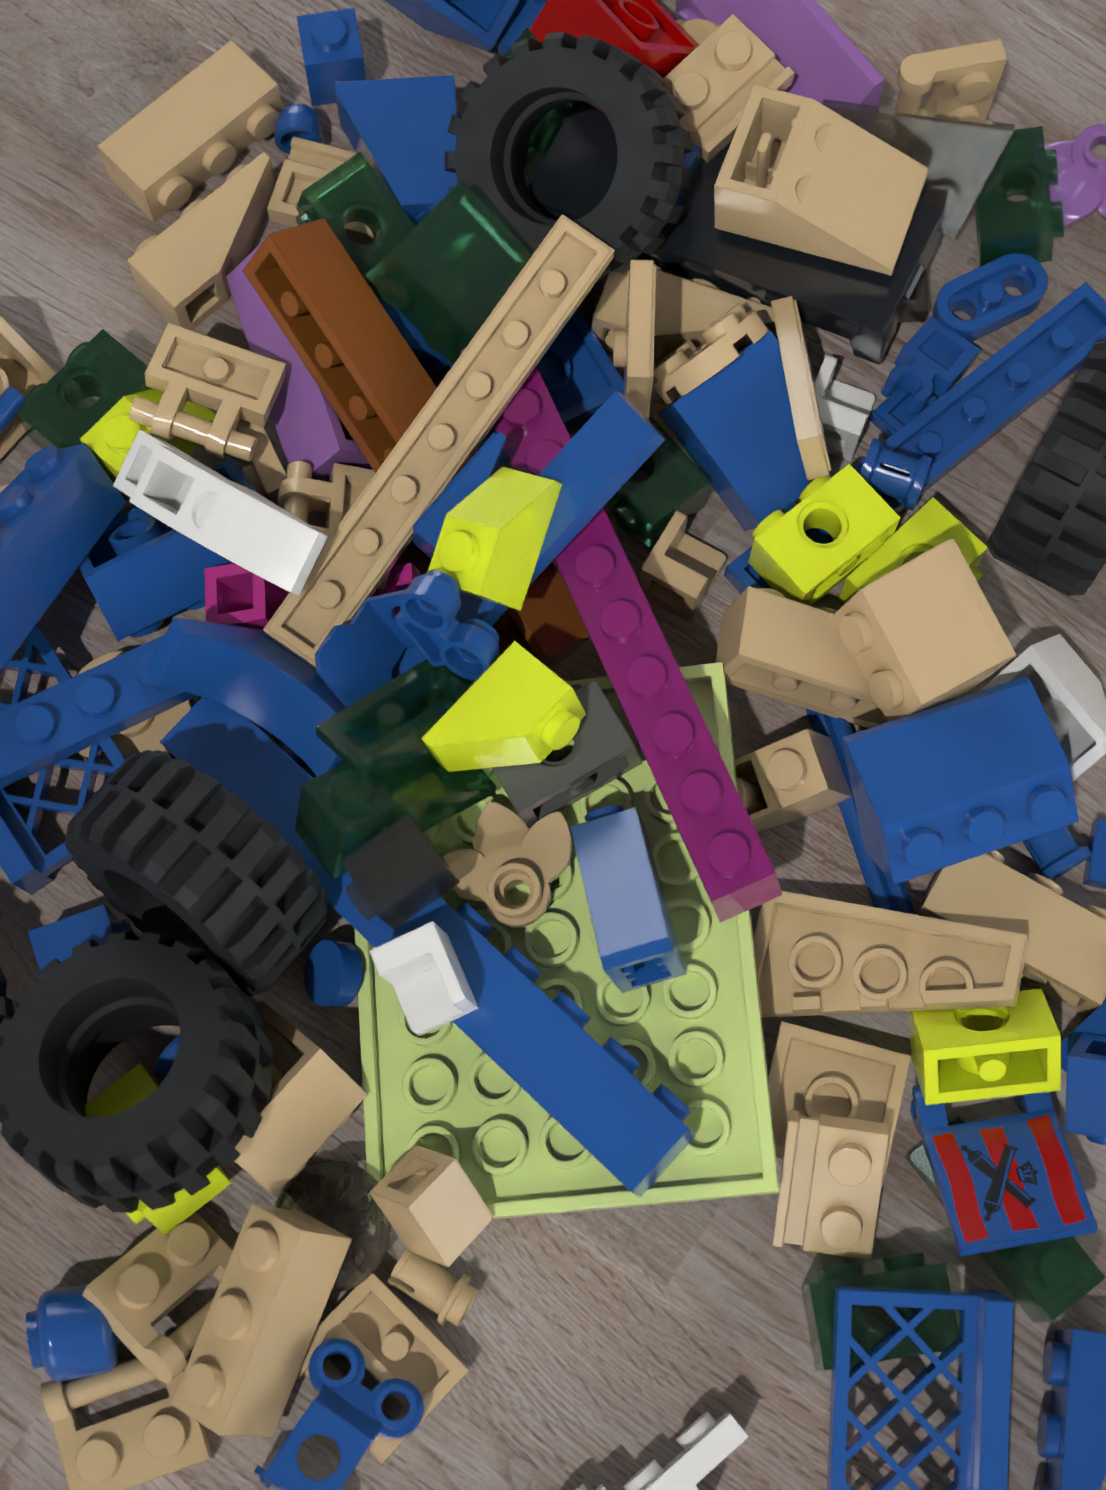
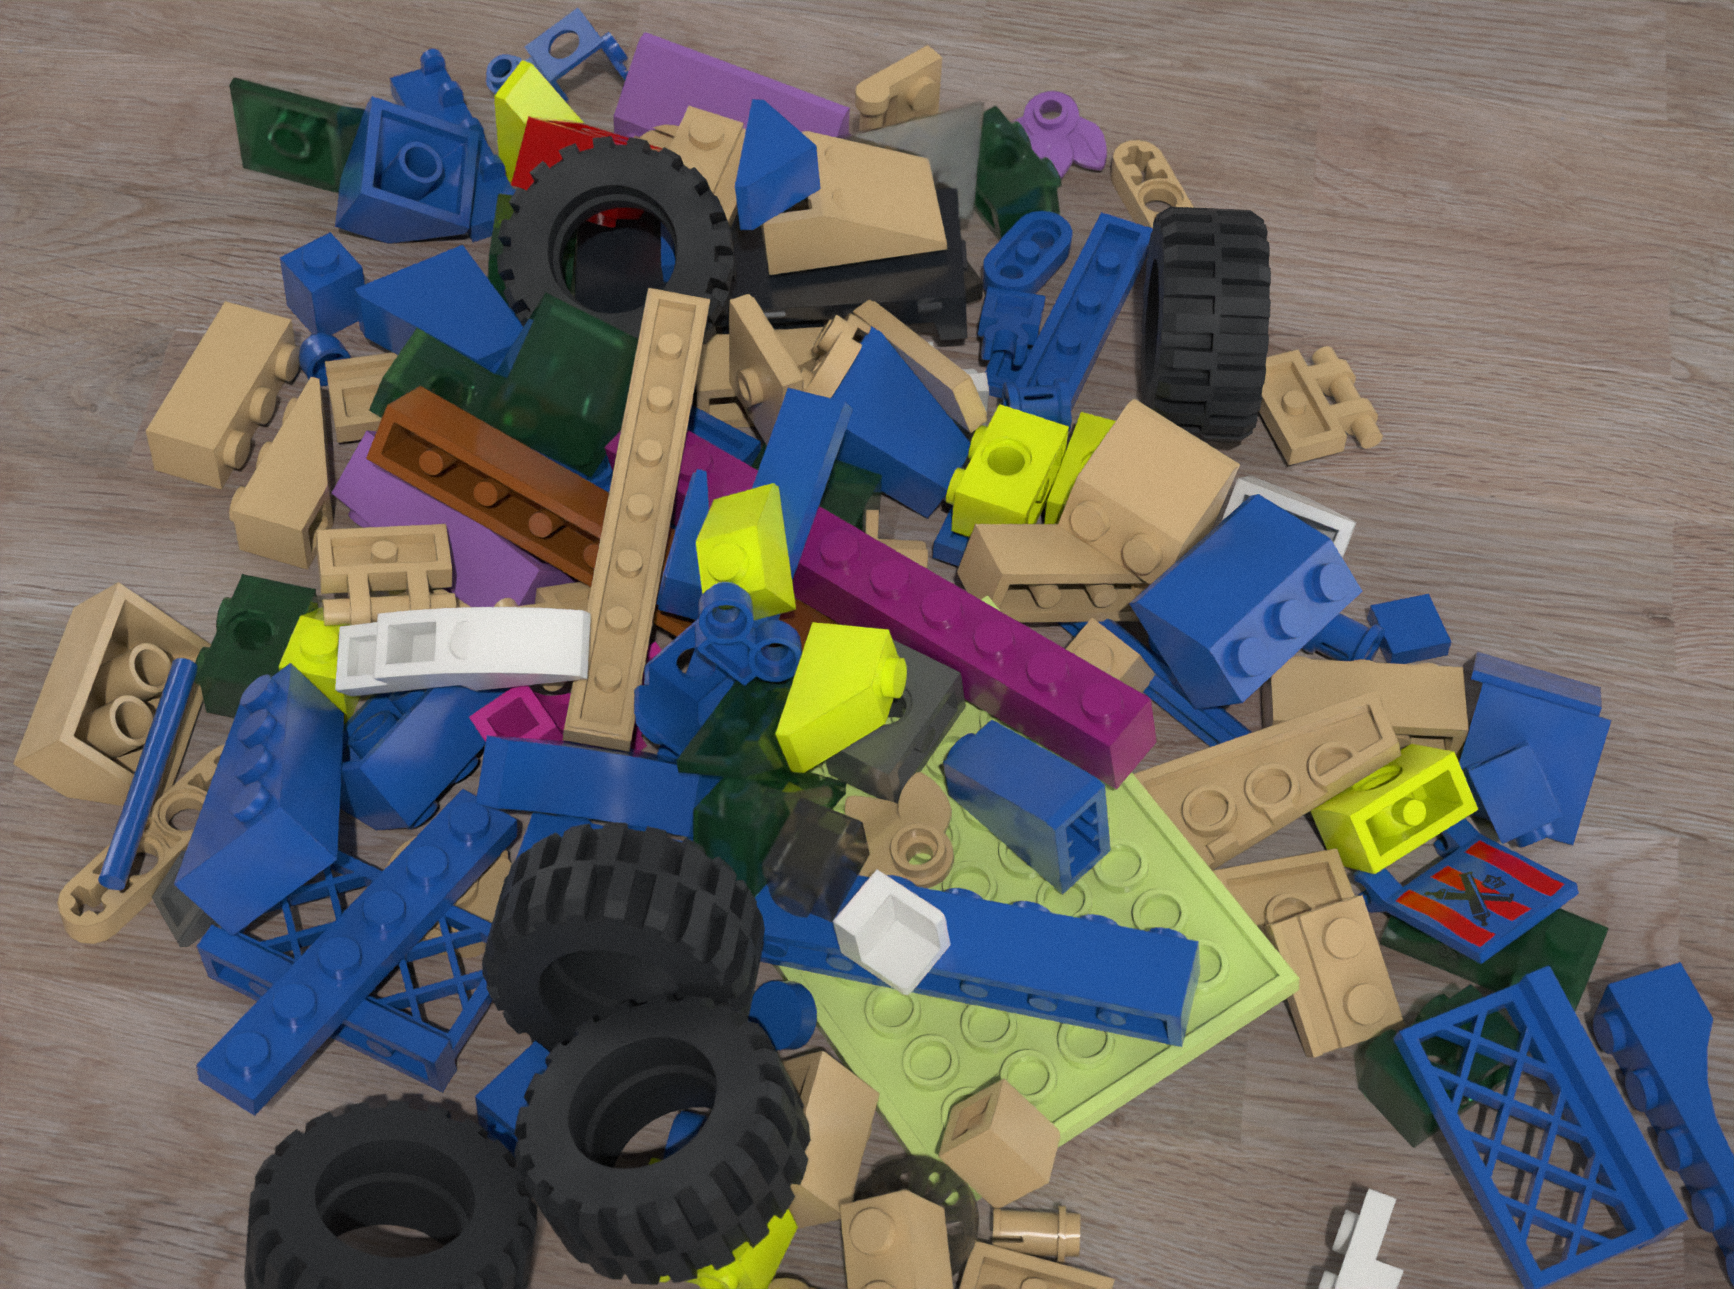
camera: 30 degrees left, 20 degrees down
(745, 133) = (774, 167): none -> blue slope

